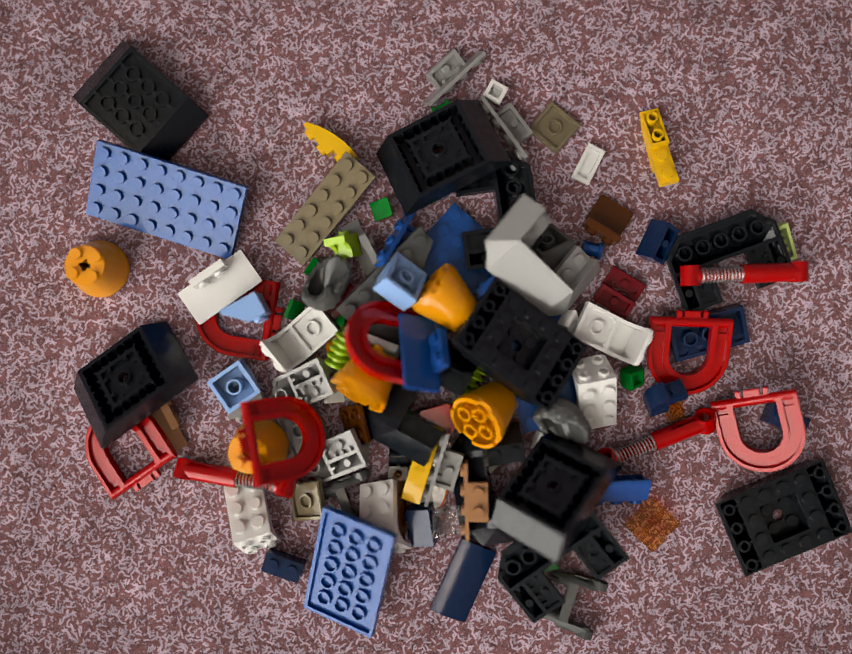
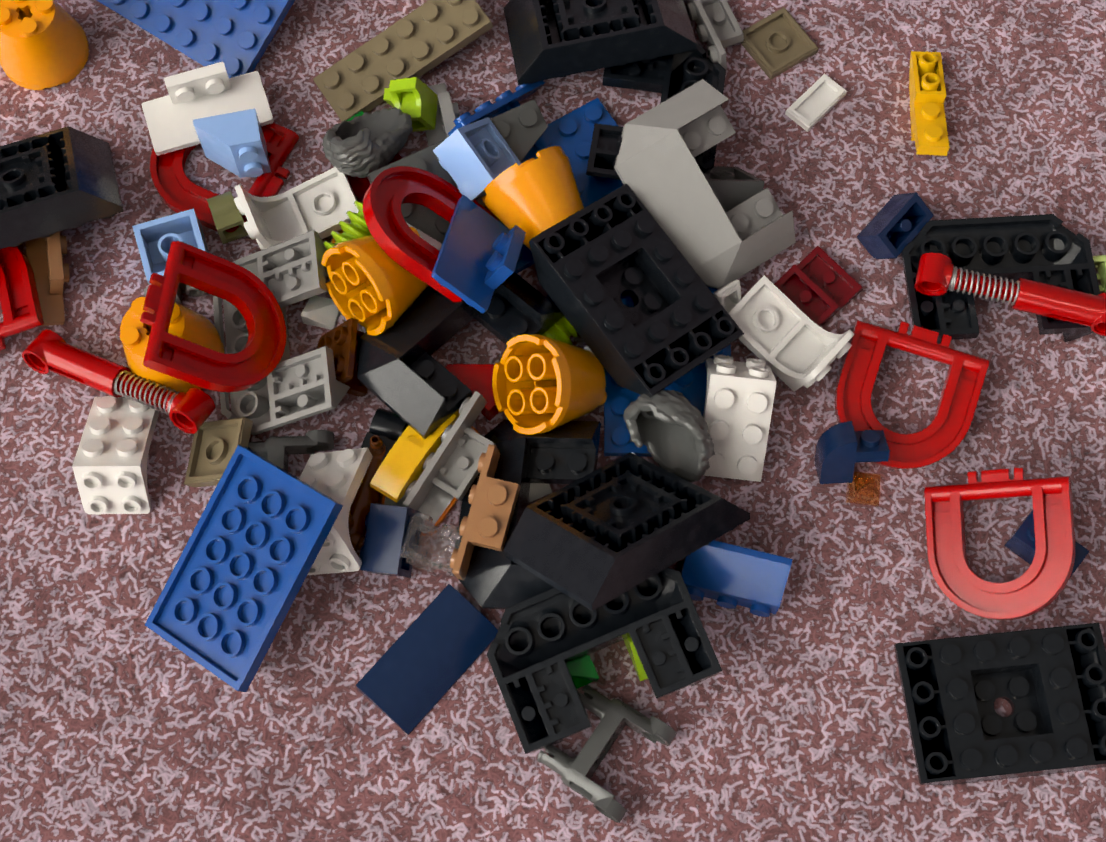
camera: 10 degrees right, 20 degrees down
(254, 352) = (226, 216): none -> olive leg
(283, 565) = (139, 542): dark blue brick -> none
(294, 309) = (302, 171): green slope -> none
(381, 209) = (486, 80): green slope -> none
(593, 249) = (799, 214): blue bush -> none
(607, 220) = (823, 182): reddish brown bracket -> none
(632, 377) = (805, 417): green slope -> none
(646, 530) = (766, 667): clear orange slope -> none
(692, 341) = (915, 384): dark blue slope -> none
(700, 423) = (903, 513): red piece -> none

